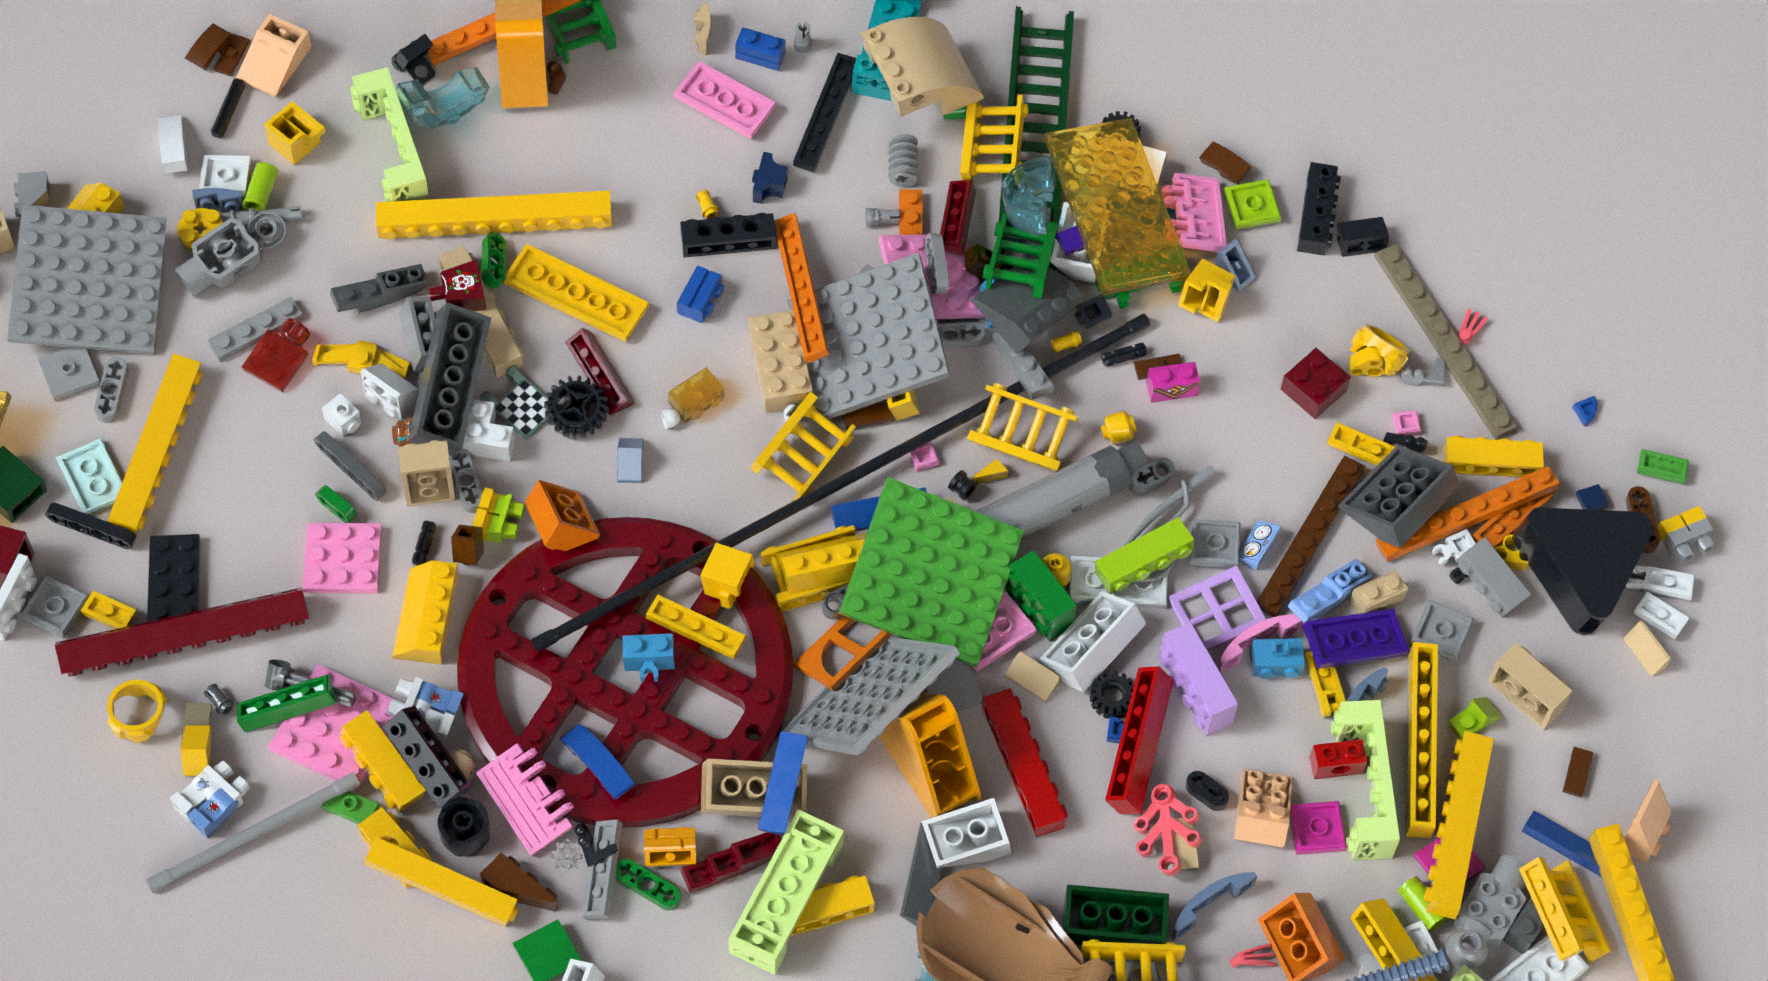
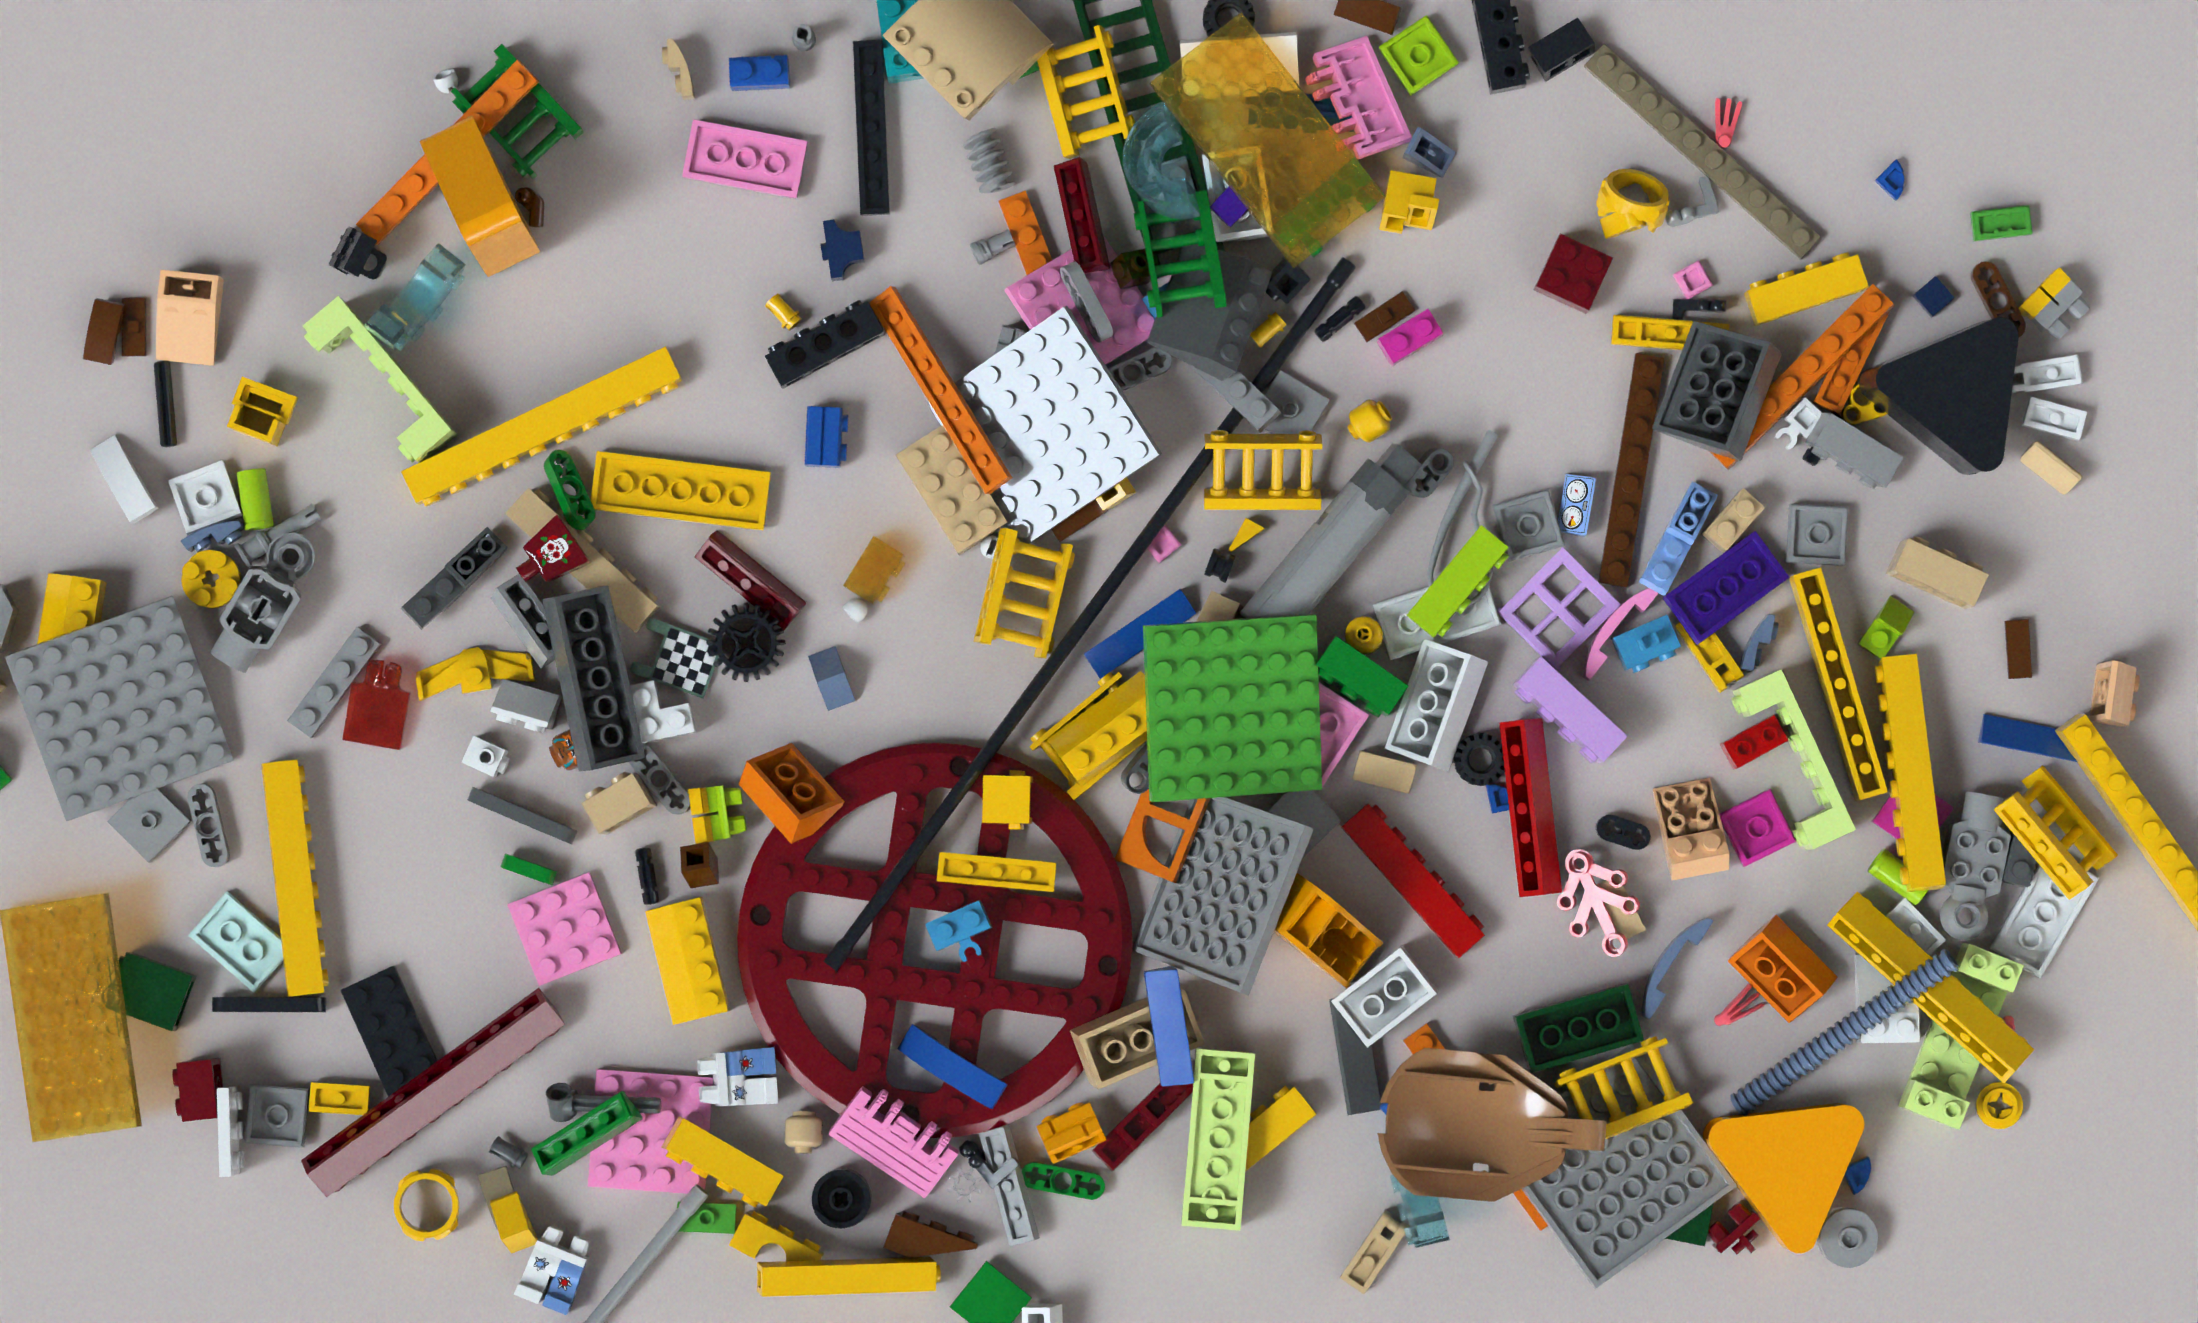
camera: 20 degrees left, 25 degrees up
(426, 756) = (771, 1143): black brick -> none
(1066, 395) = (1297, 403): none -> light grey plate

